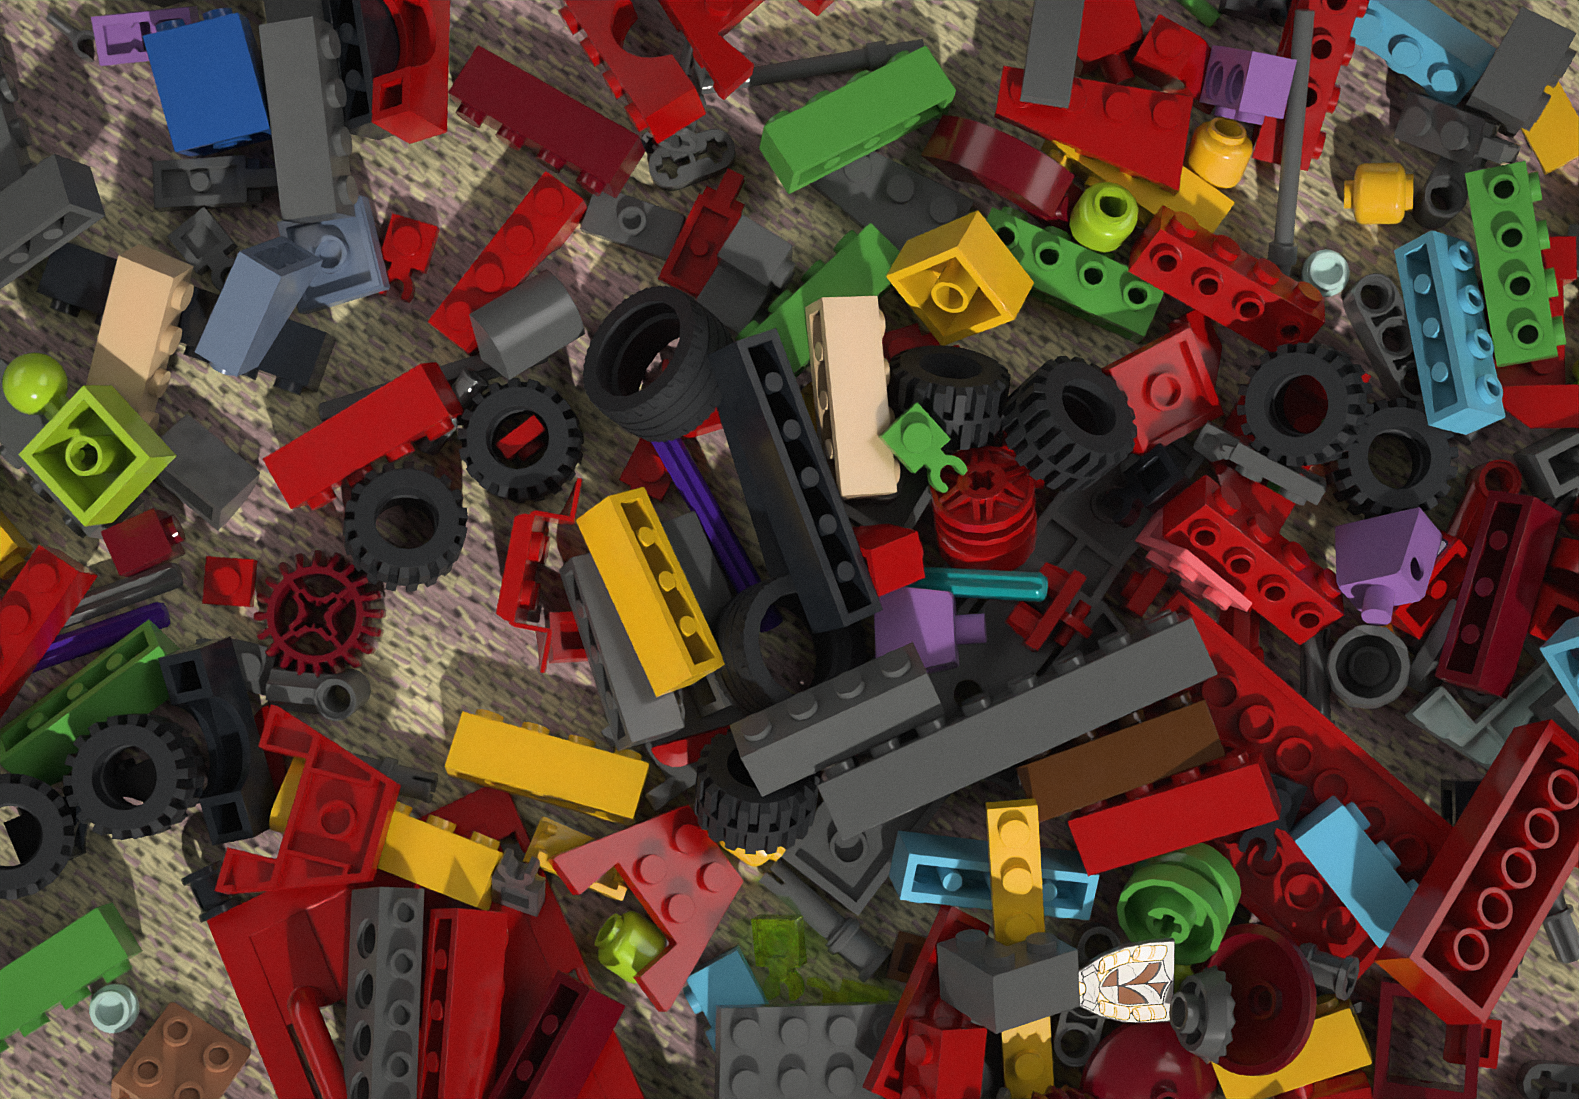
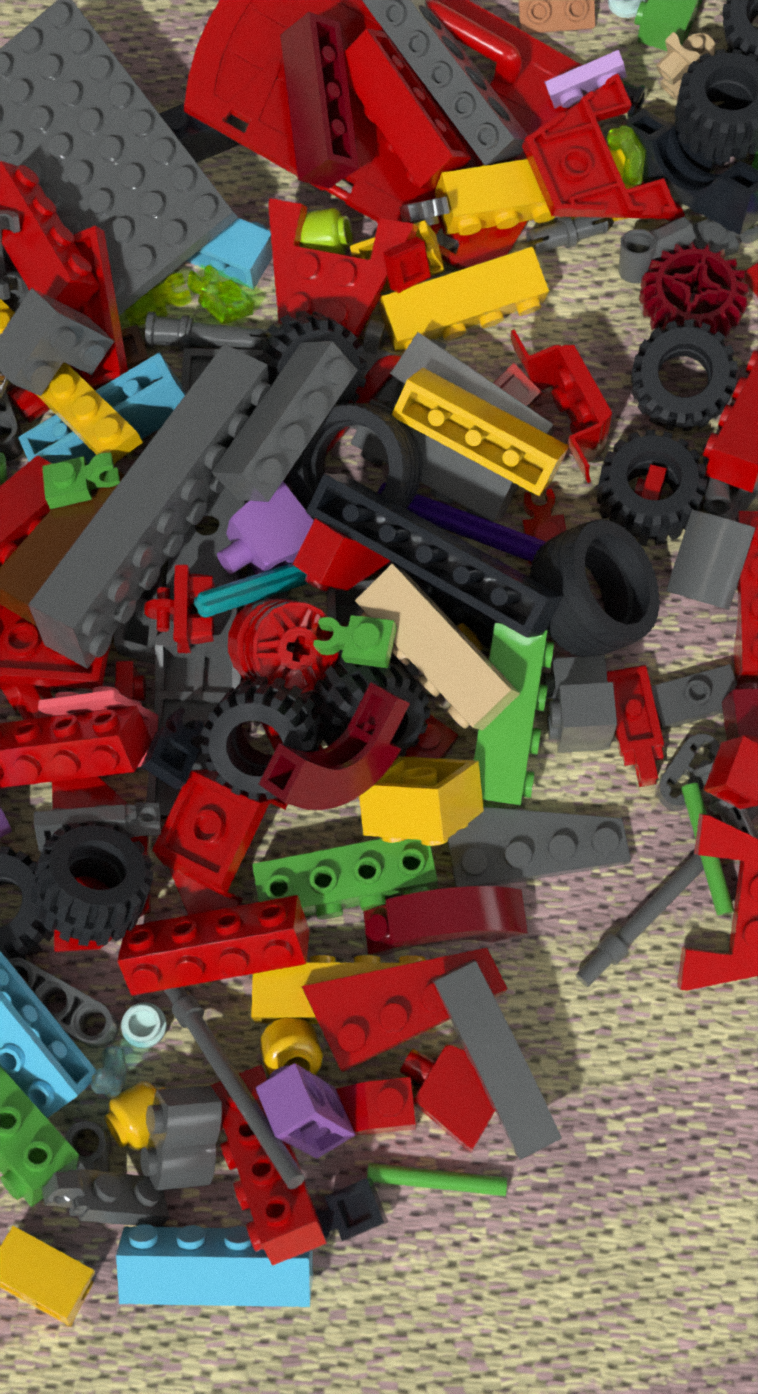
camera: 150 degrees right, 15 degrees down
(104, 874) = (679, 57): none -> tan hips
(224, 912) = (573, 85): none -> lavender plate
(265, 797) = (633, 150): none -> clear neon green arm
(586, 827) = (407, 264): none -> red tile
(720, 108) = (711, 865): none -> bright green bar
(856, 118) = (590, 876): bright green brick -> none
(1021, 334) = (345, 767): none -> dark red arch
(1078, 809) = (73, 479): none -> bright green plate
(1104, 217) = (333, 942): lime head -> none
(1361, 140) = (182, 1137): none -> dark grey brick
(1389, 233) = (113, 1075): none -> clear light blue arm
(1526, 62) = (85, 1271): dark grey brick -> none

